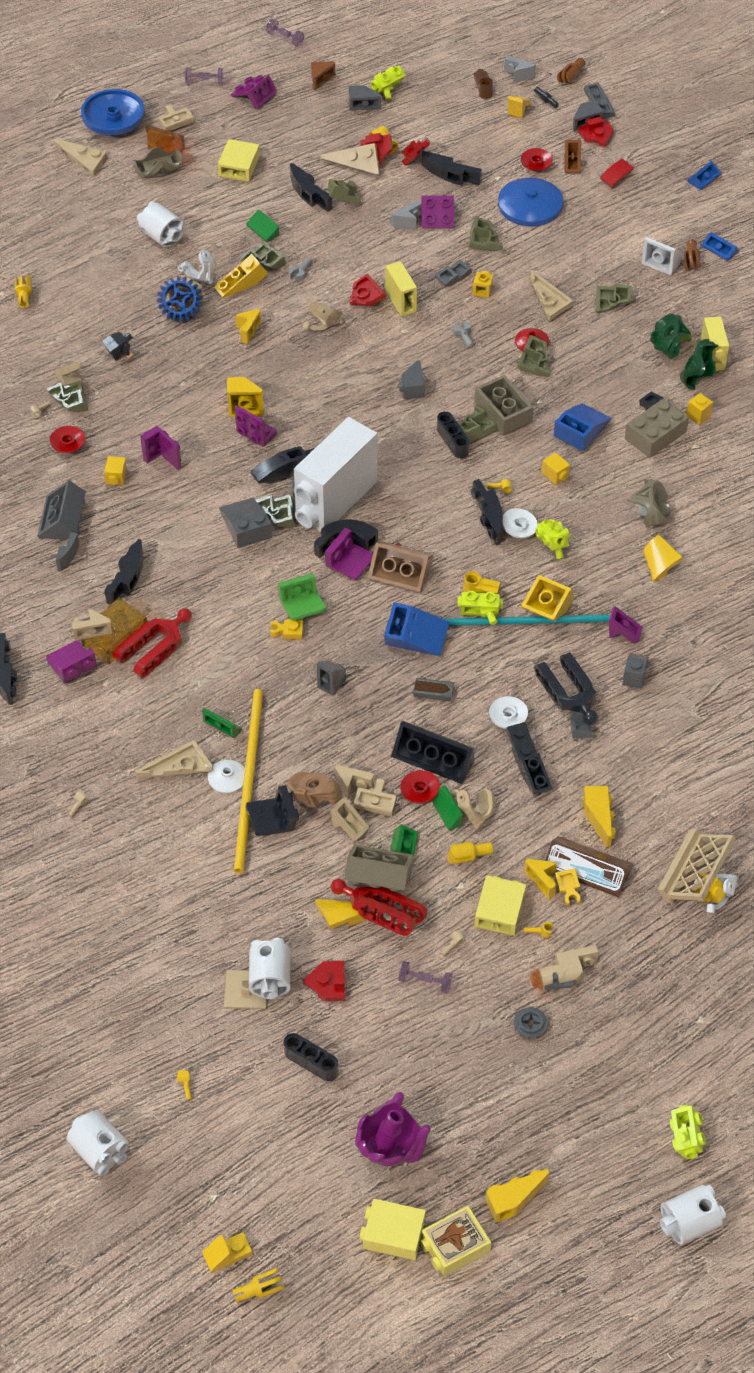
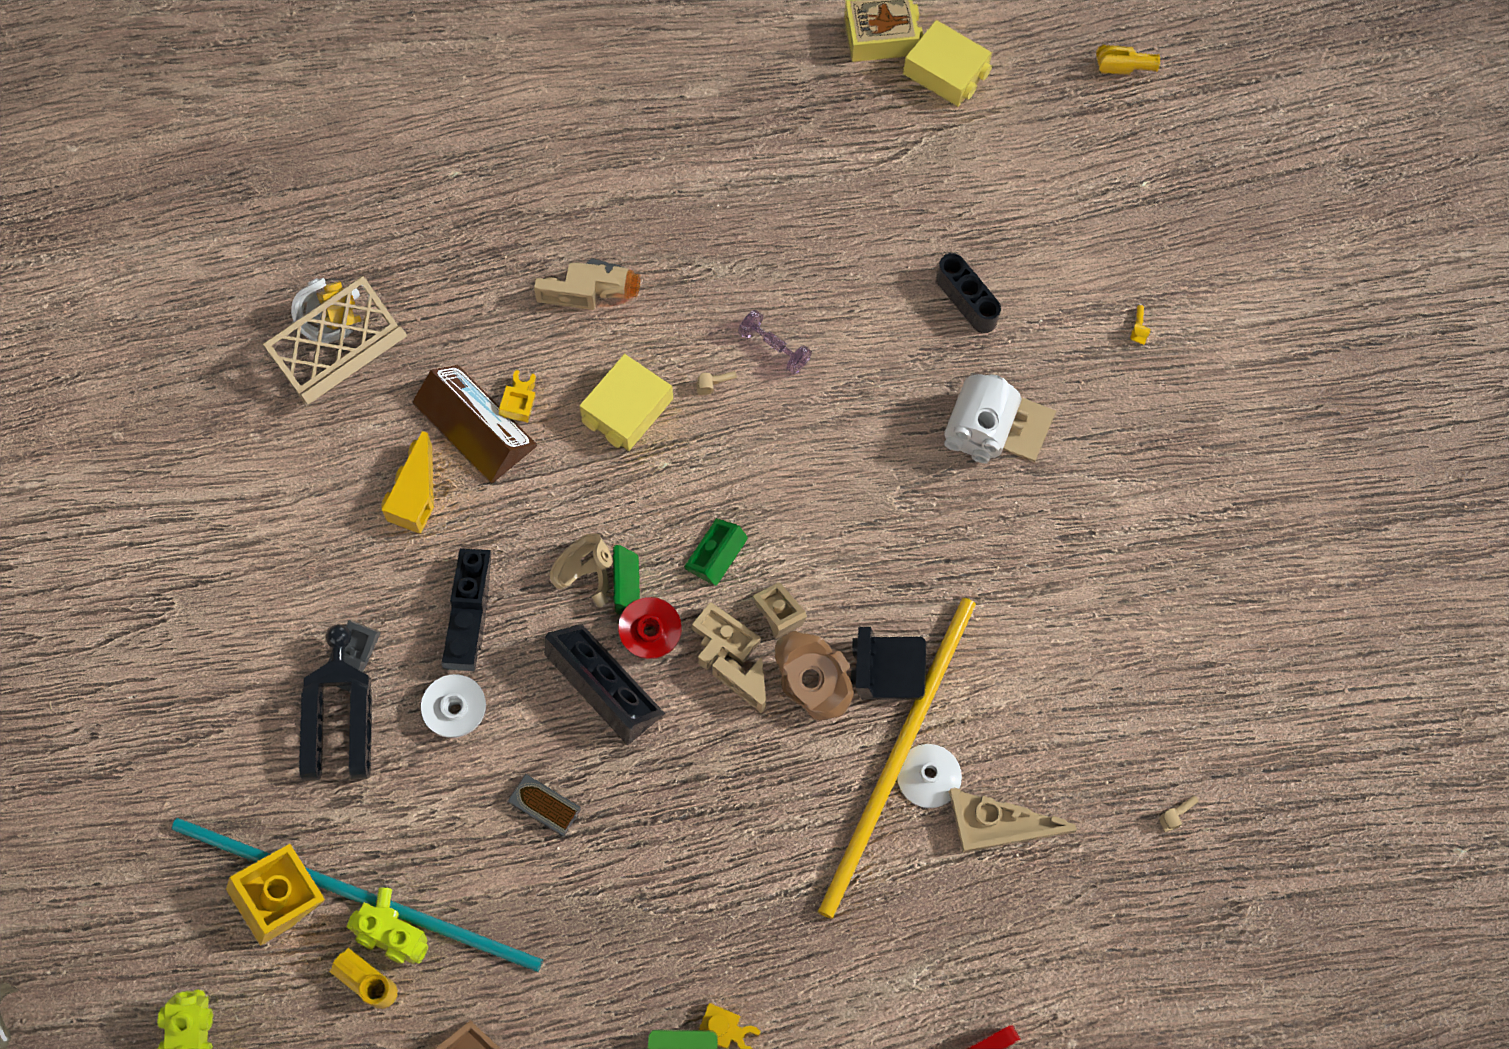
camera: 160 degrees left, 15 degrees up
(97, 1142) = (1279, 273): white cylinder -> none
(220, 723) = (905, 876): green slope -> none
(226, 1252) = (1151, 114): yellow slope -> none
(327, 981) = (904, 391): red plate -> none
(330, 676) = (697, 885): dark grey slope -> none
(338, 912) = (847, 479): yellow slope -> none
(369, 897) = (817, 477): red piece -> none
(378, 867) = (771, 505): dark tan brick -> none
(391, 1134) = (914, 147): magenta piece -> none
(415, 630) = (522, 920): blue slope -> none
(468, 852) = (630, 499): yellow arm -> none
(510, 1198) = (788, 49): yellow slope -> none
(538, 1018) = (664, 228): dark grey gear -> none
(540, 873) = (546, 427): yellow slope -> none
(542, 930) = (587, 355): yellow hand -> none
(623, 624) = (185, 792): magenta slope -> none
(635, 670) = (213, 711): dark grey slope -> none
(660, 557) = (36, 917): yellow slope -> none
(687, 1140) = (556, 35): neon yellow brick -> none

